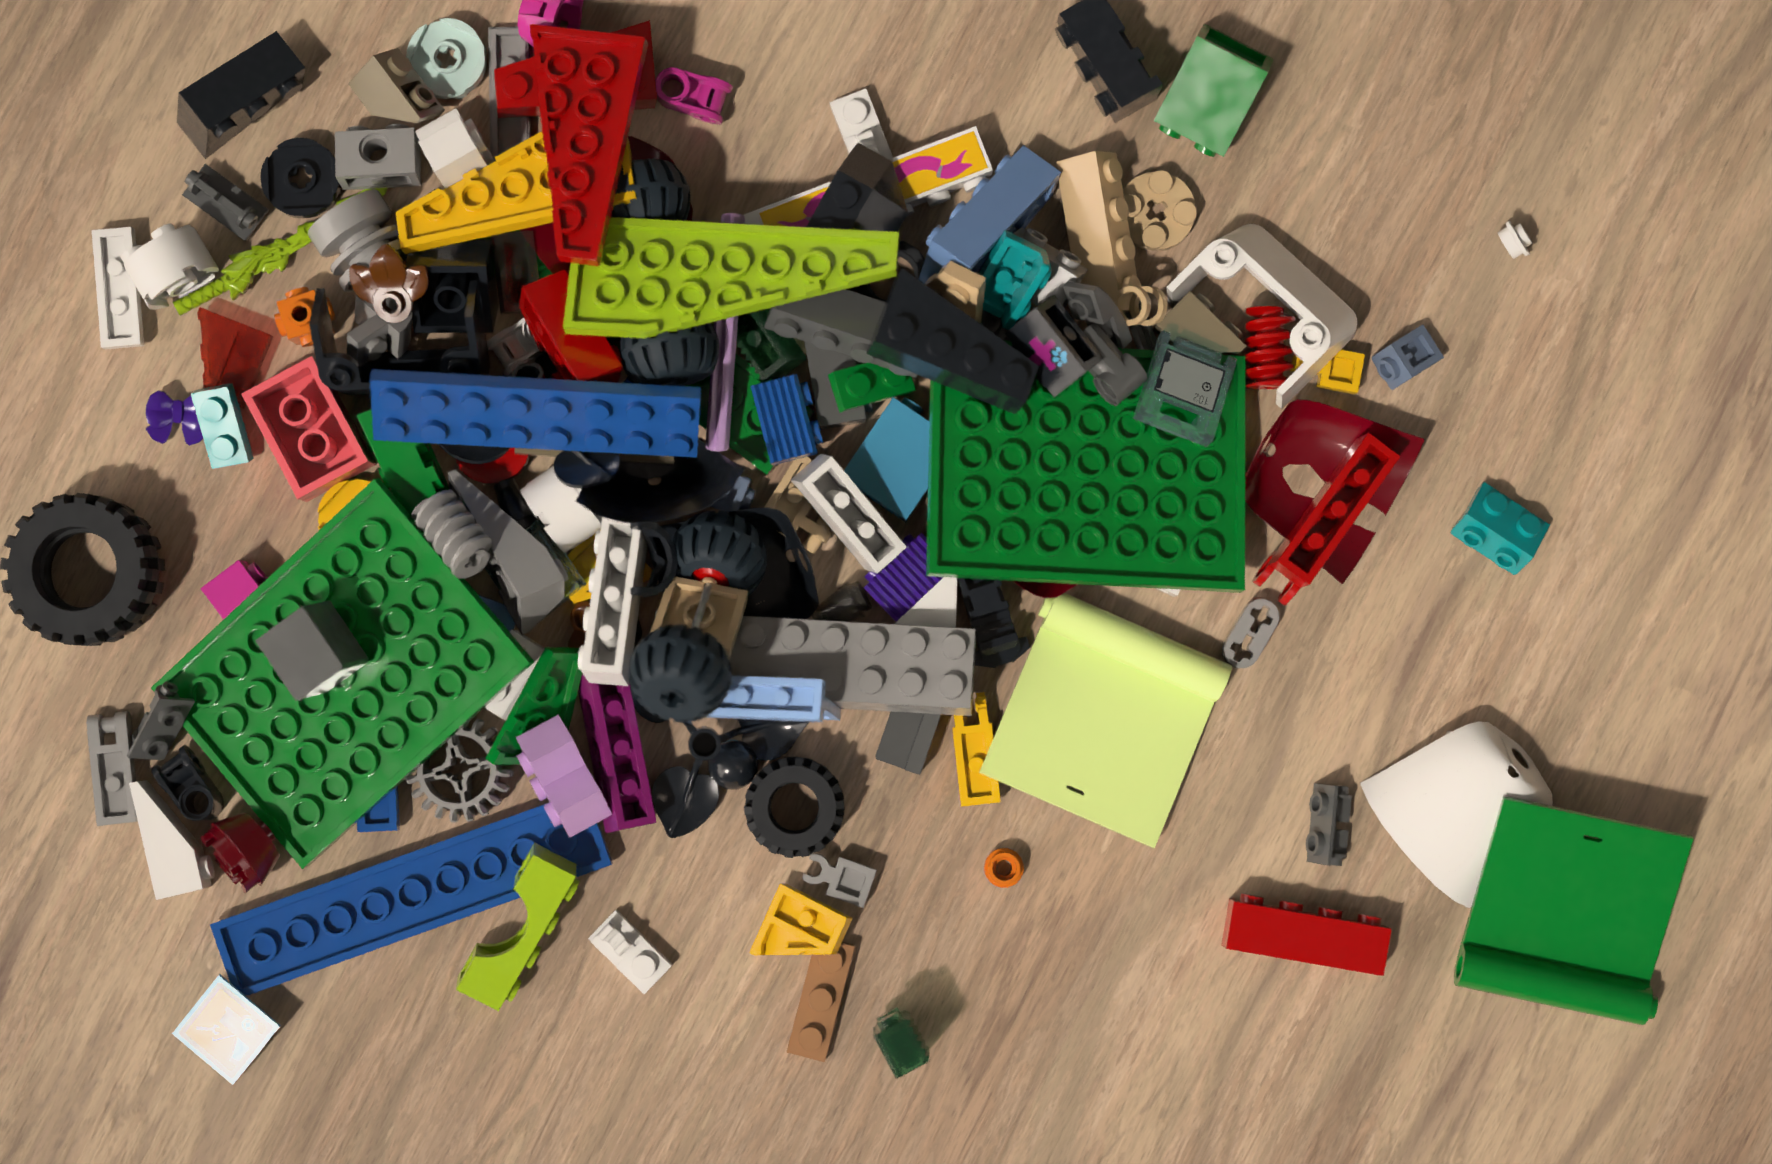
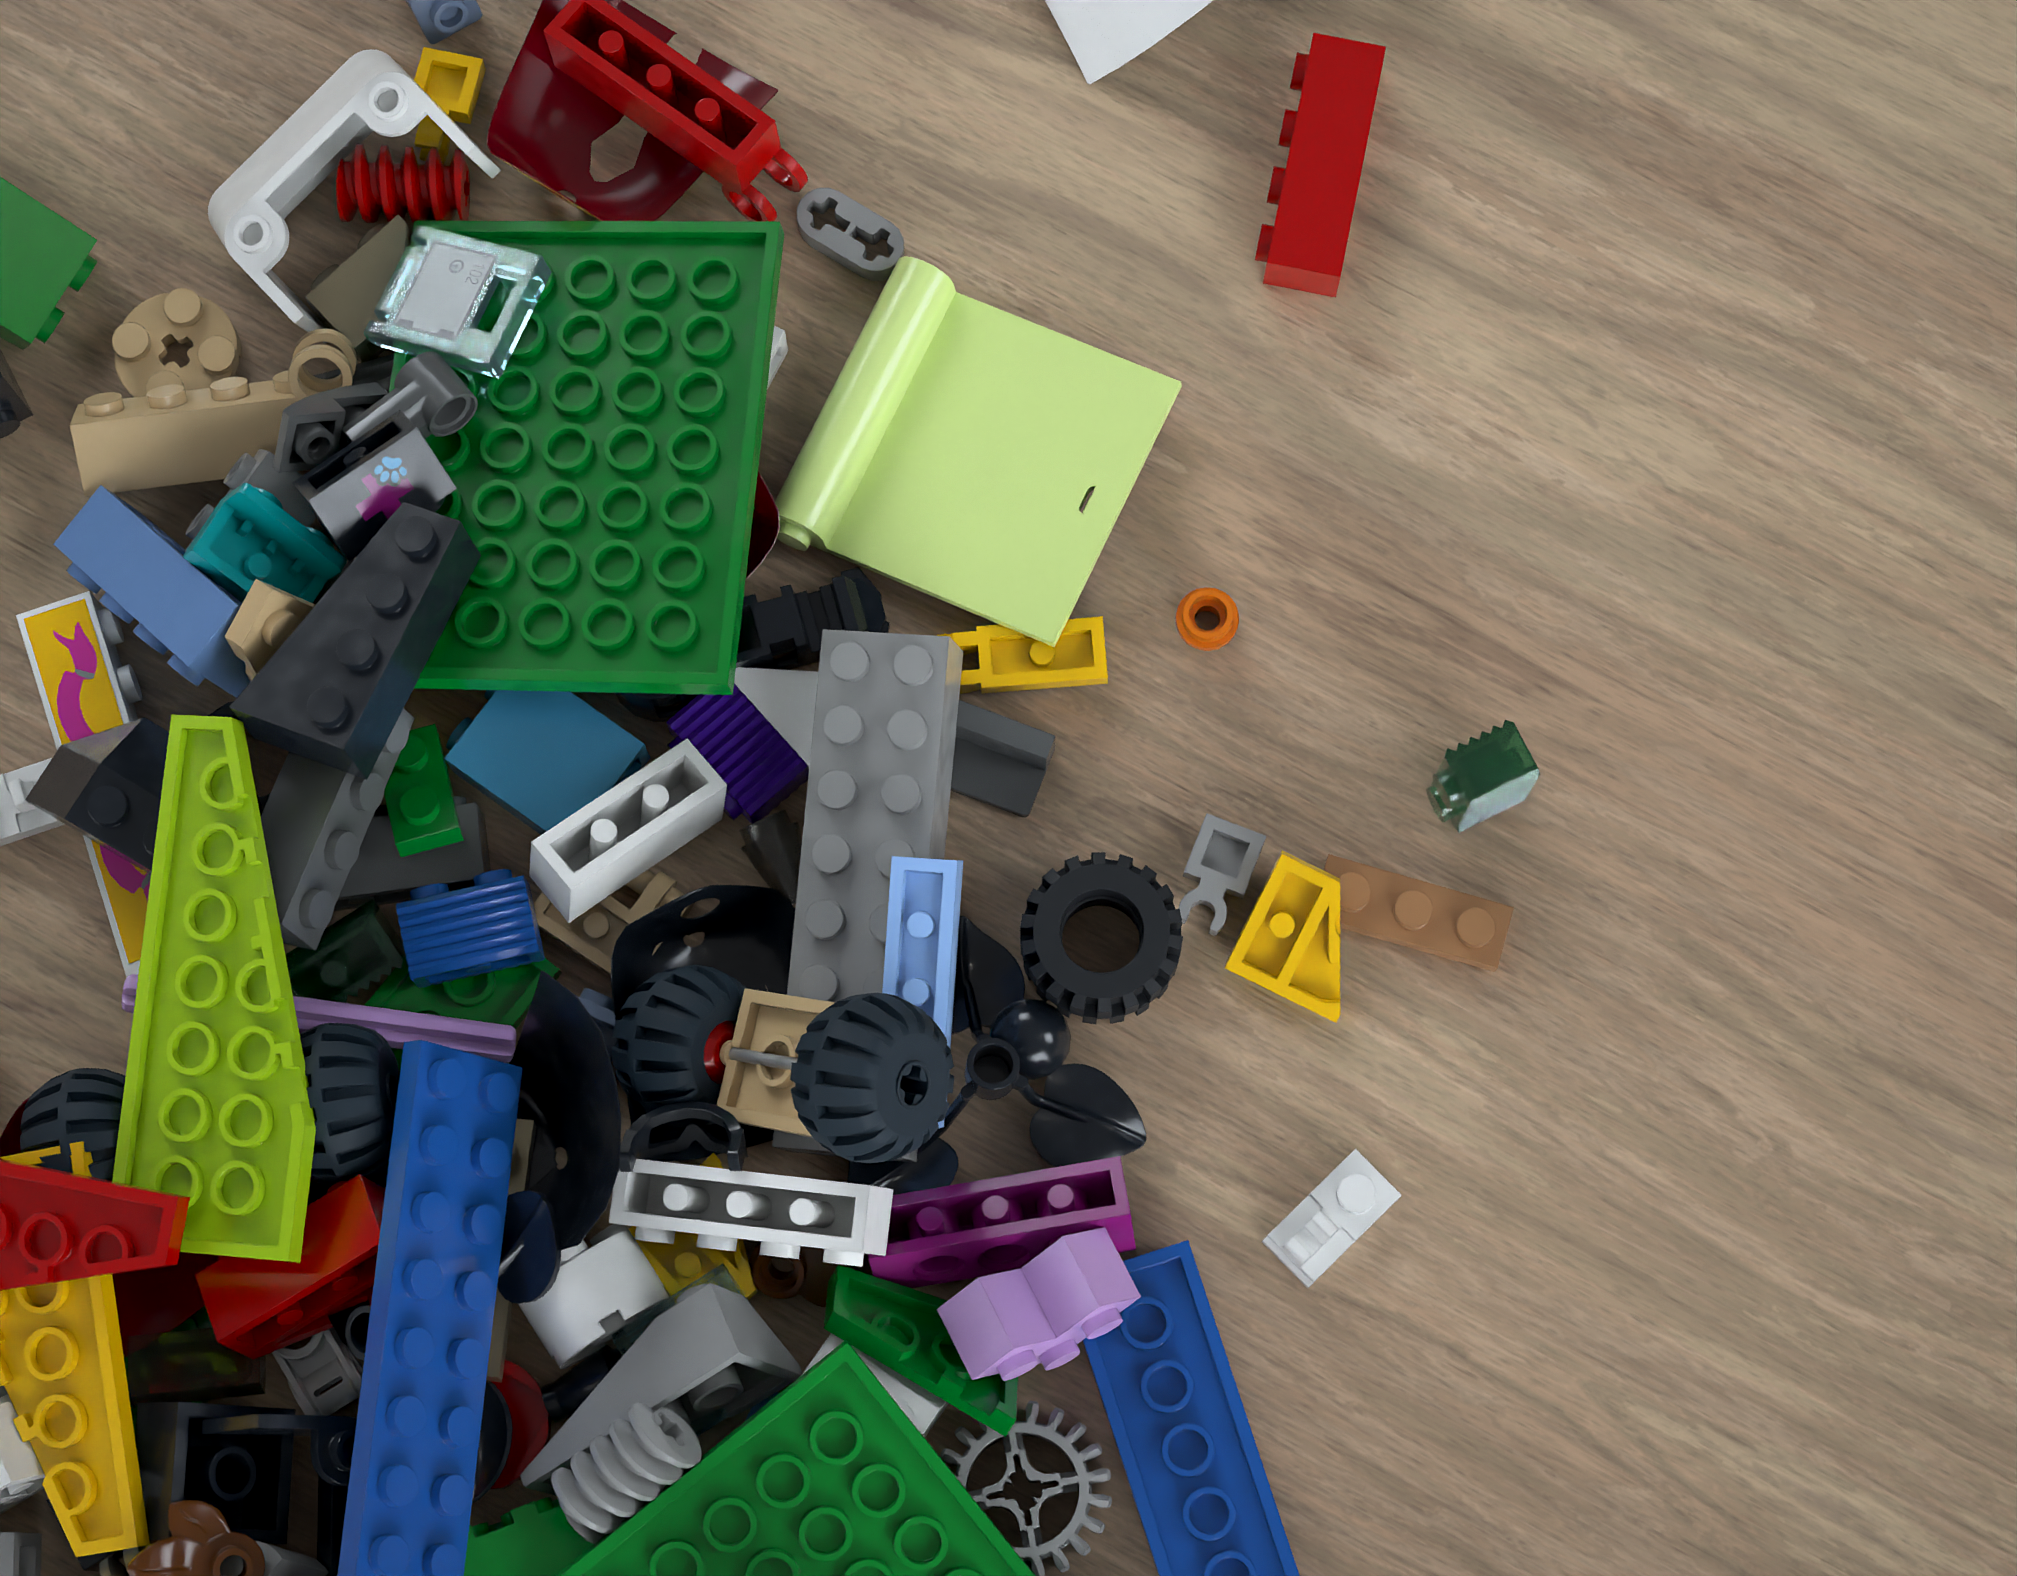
camera: 85 degrees left, 10 degrees down
(494, 968) = (1358, 1437): lime arch -> none
(1324, 842) = (1127, 129): dark grey hinge -> none

